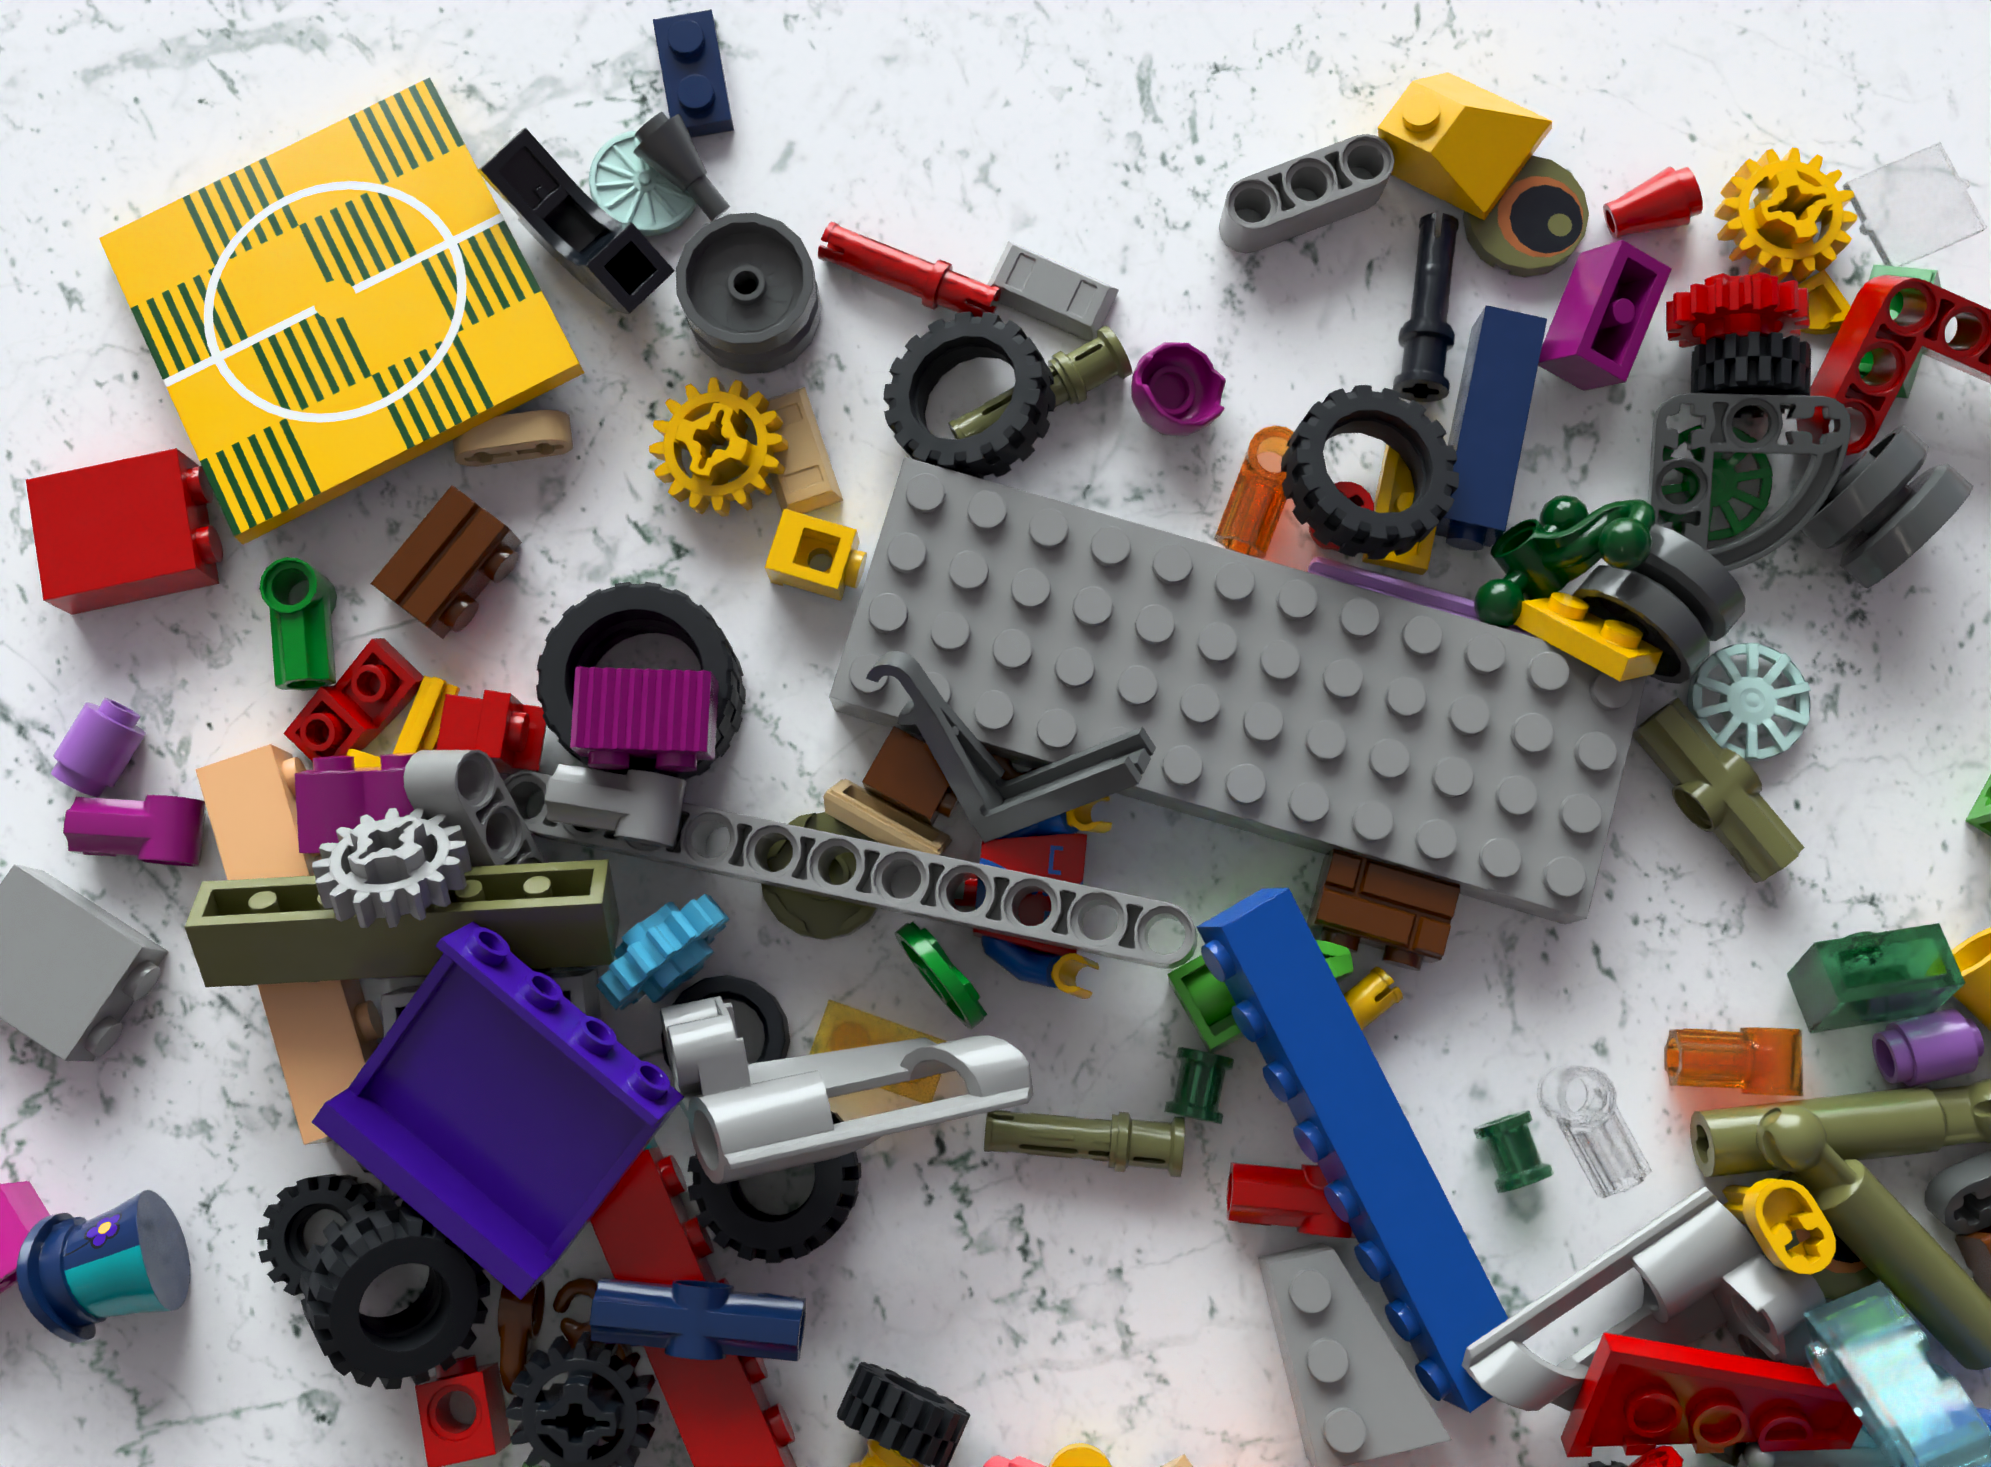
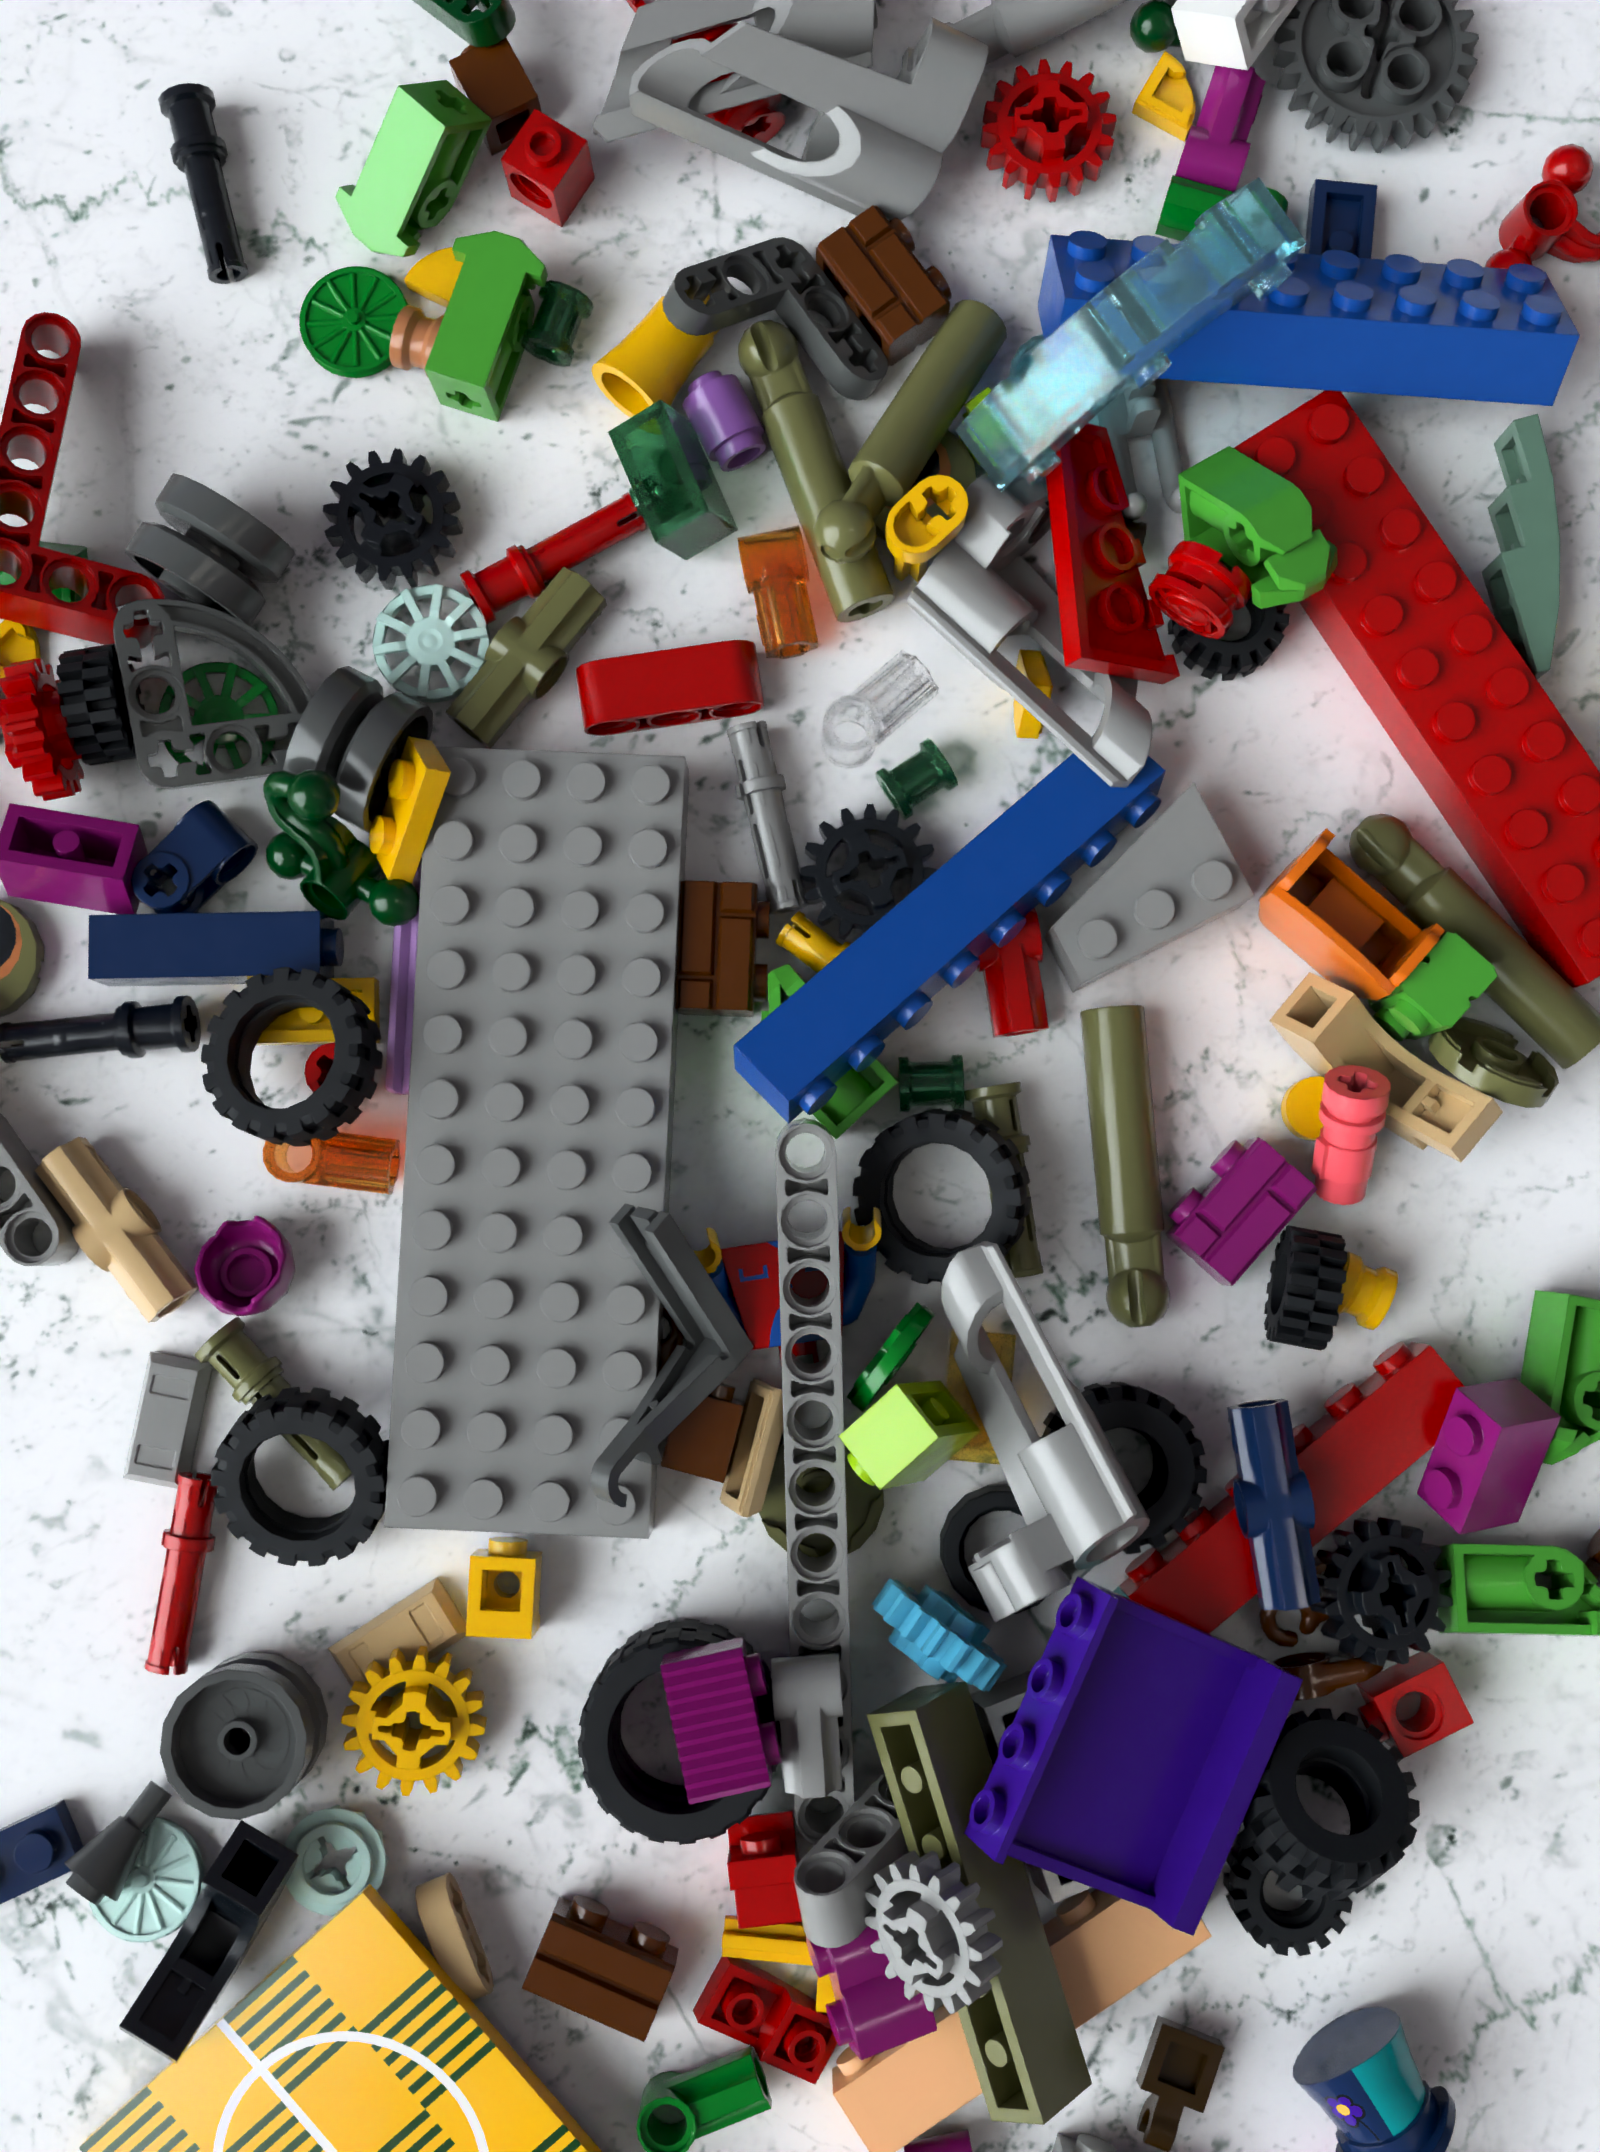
camera: 100 degrees left, 5 degrees up
(187, 1079) = (1178, 2073): none -> dark brown plate
(588, 339) = (328, 1890): none -> light aqua gear
(862, 969) = (907, 1434): none -> brick
(997, 1369) = (1239, 1209): none -> magenta brick
(1076, 1264) = (1125, 1162): none -> olive piece
(1122, 1122) = (968, 1134): none -> black tyre
(1241, 282) = (116, 1229): none -> tan piece
(1422, 1049) = (859, 849): none -> black gear
(1490, 989) = (764, 803): none -> light grey pin
(1582, 431) = (198, 857): none -> dark blue piece
(1603, 1304) = (1034, 667): none -> yellow tile
(1658, 925) = (669, 687): none -> red beam
(1807, 812) = (526, 570): none -> red pin
(1911, 697) = (388, 492): none -> black gear

